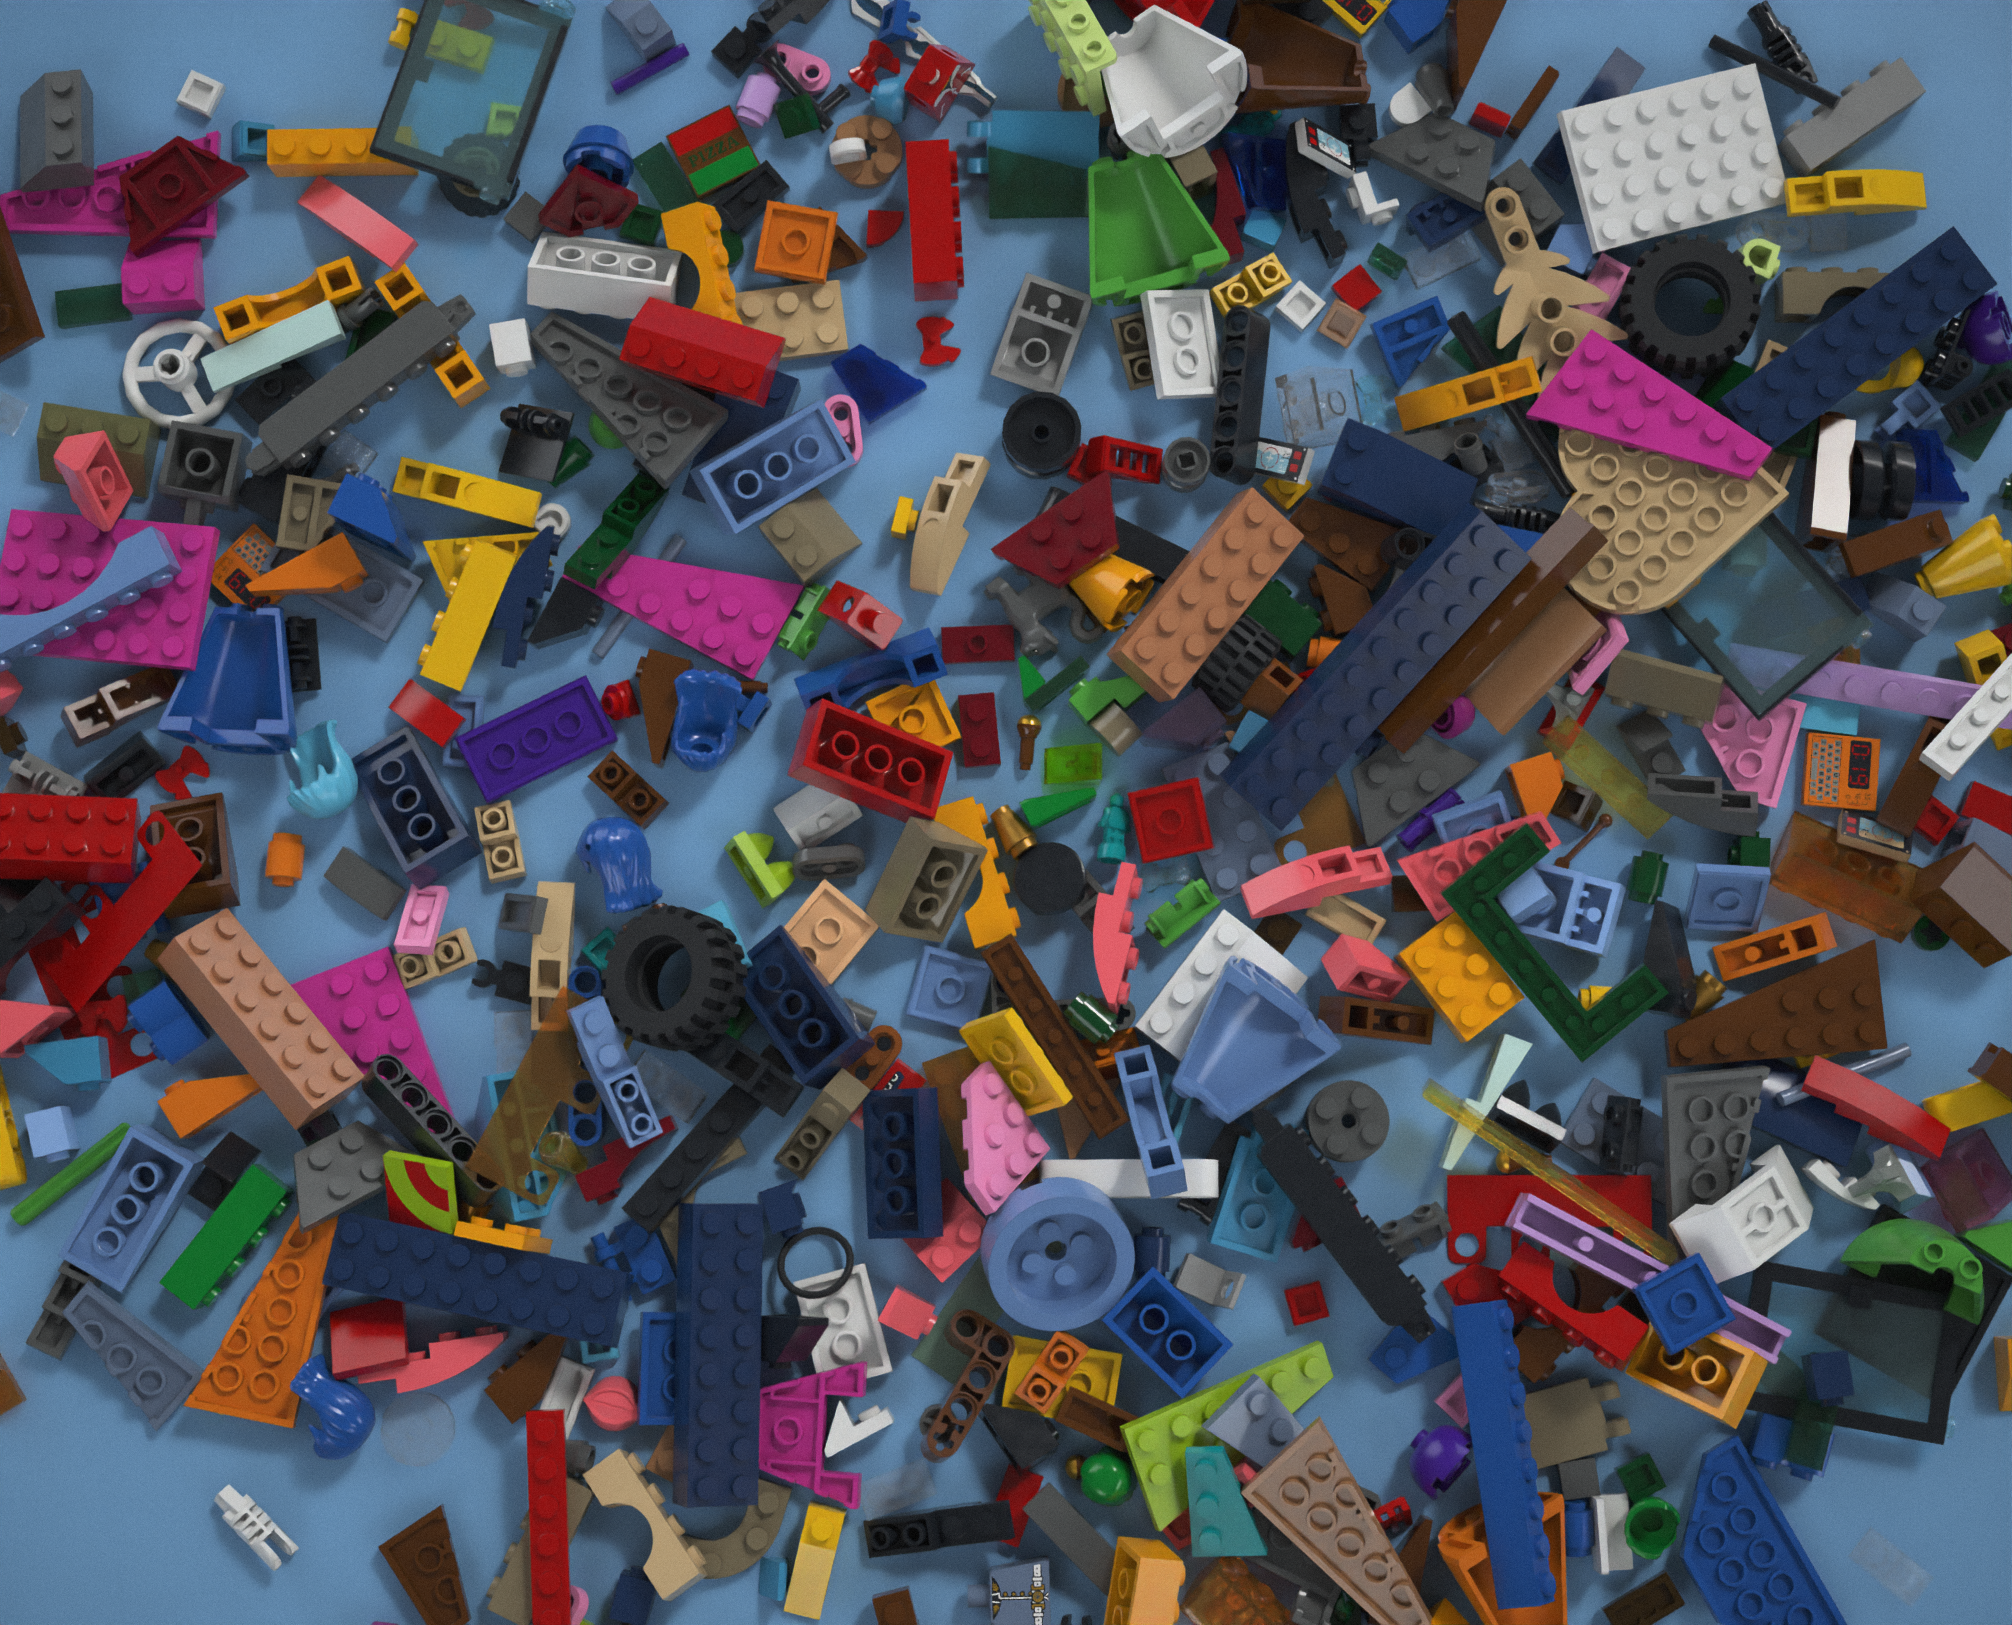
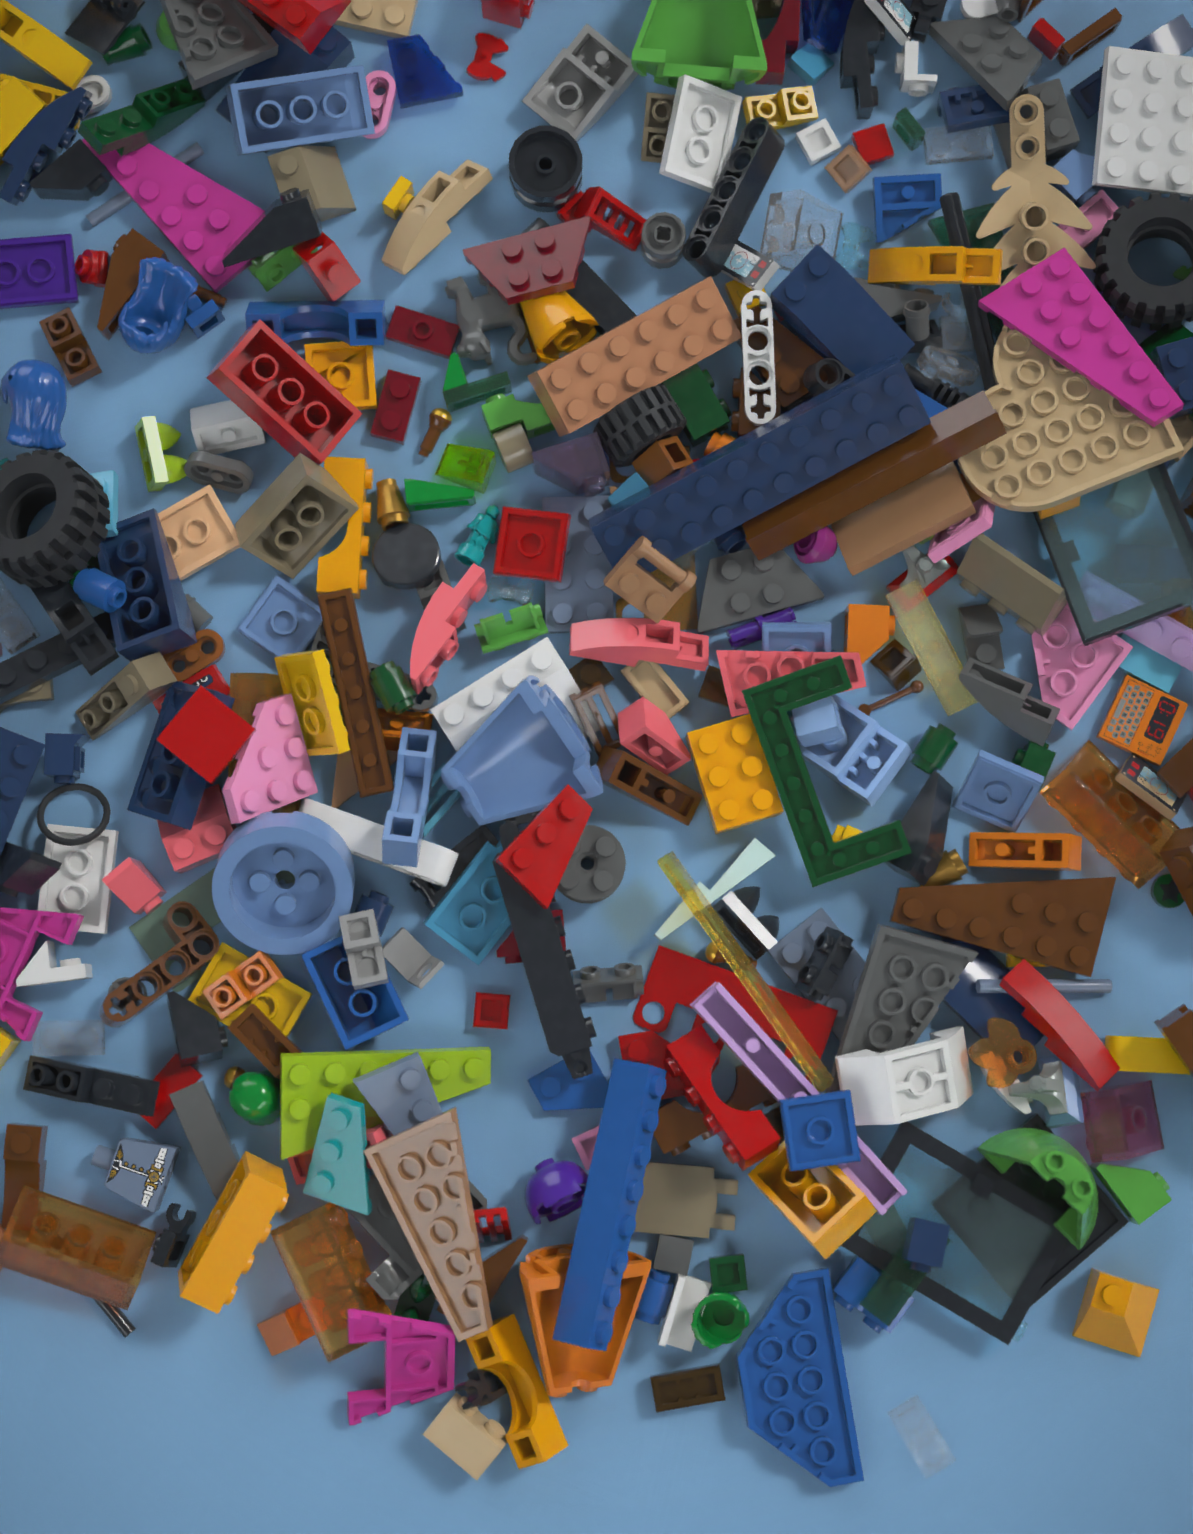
camera: 20 degrees right, 0 degrees up
(762, 1028) = (100, 589): none -> blue brick
(801, 593) = (282, 224): none -> black slope
(927, 1136) = (206, 734): none -> red tile
(1163, 1291) = (363, 949): none -> light grey slope
(1284, 952) = (587, 694): none -> tile
(1304, 826) = (643, 588): none -> medium nougat plate
(1308, 1121) = (546, 844): none -> red wing
(1333, 550) = (755, 358): none -> white beam
(1825, 1158) = (998, 1051): none -> clear orange plate

